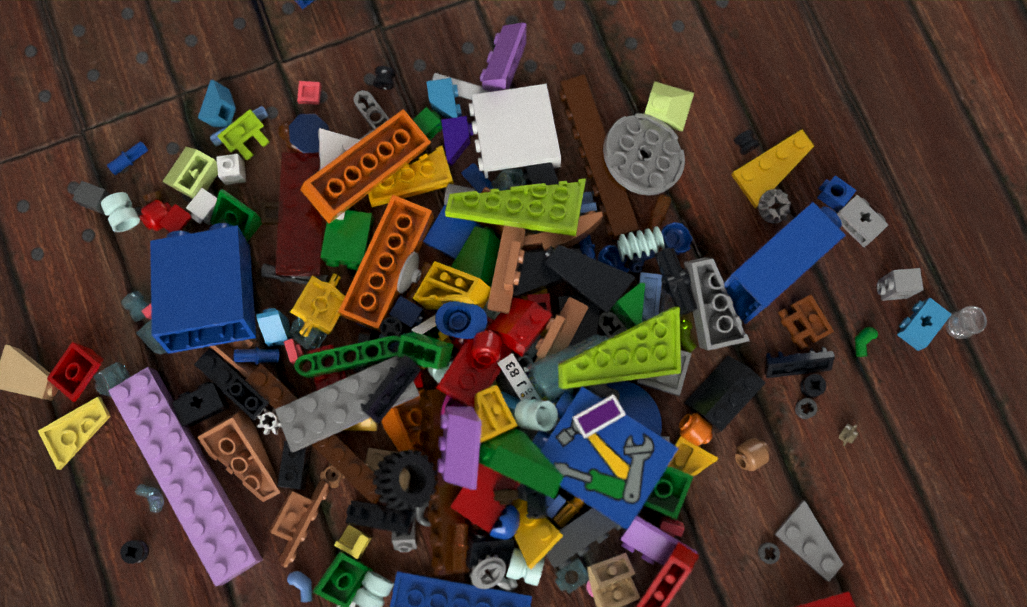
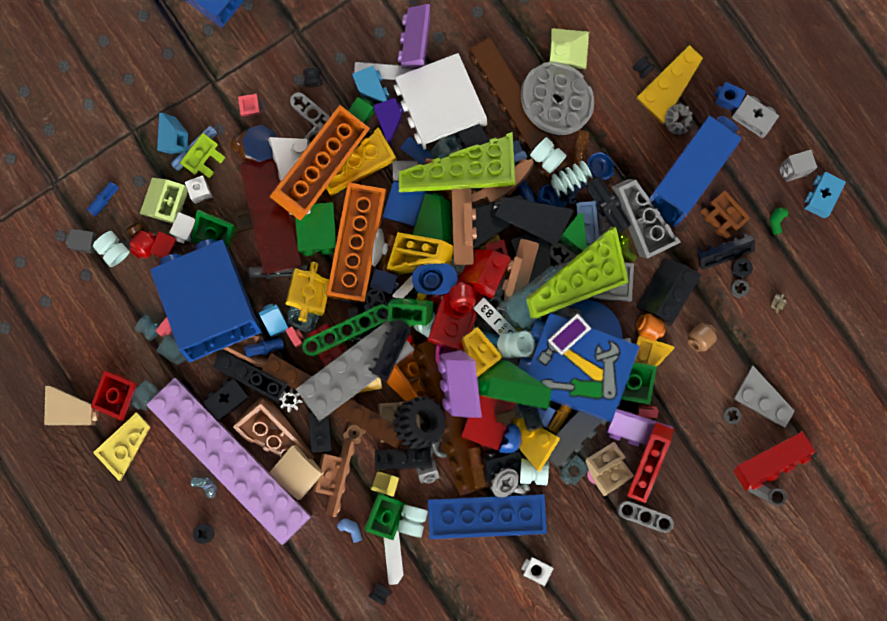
camera: 15 degrees left, 5 degrees up
(255, 505) = (296, 472): none -> tan slope
(621, 214) = (548, 155): none -> light aqua wheel
(966, 322) = (863, 183): clear wheel -> none

